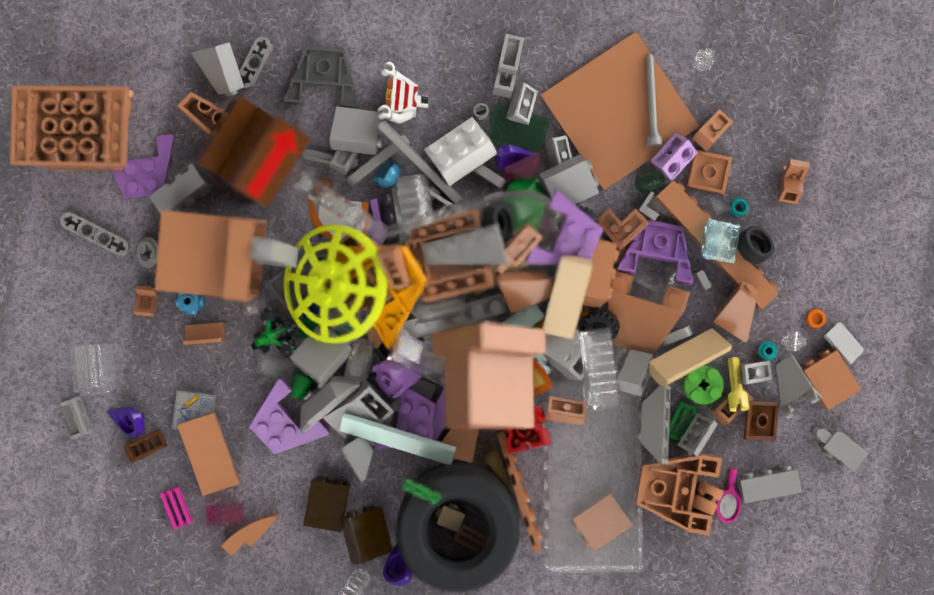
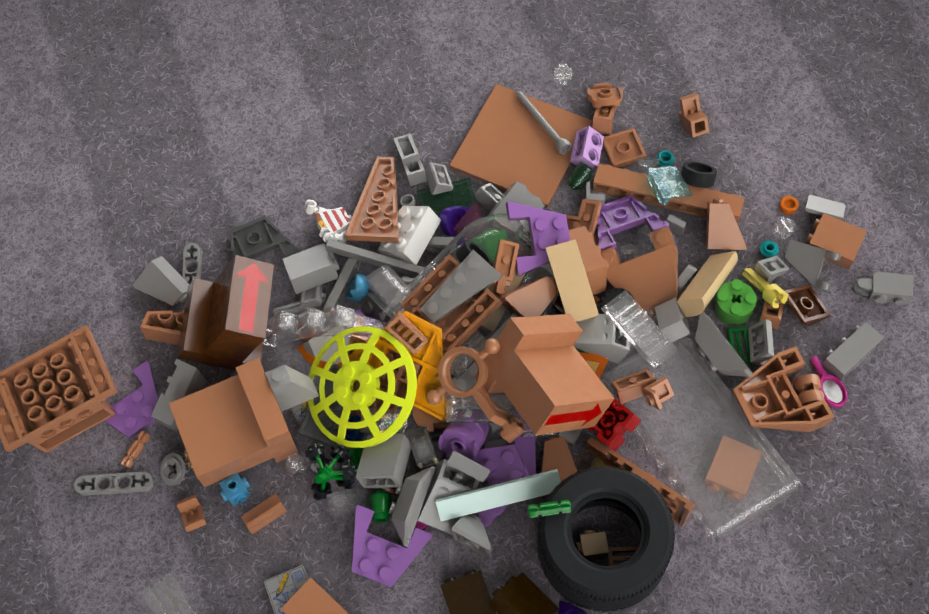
camera: 30 degrees left, 25 degrees down
(126, 212) = (135, 449): none -> nougat axle
(385, 402) = (468, 466): none -> light grey slope
(427, 379) = (511, 426): none -> nougat piece
(443, 111) = (377, 208): none -> nougat wing
(579, 432) = (658, 392): none -> nougat bracket
(726, 117) = (604, 95): none -> nougat plate

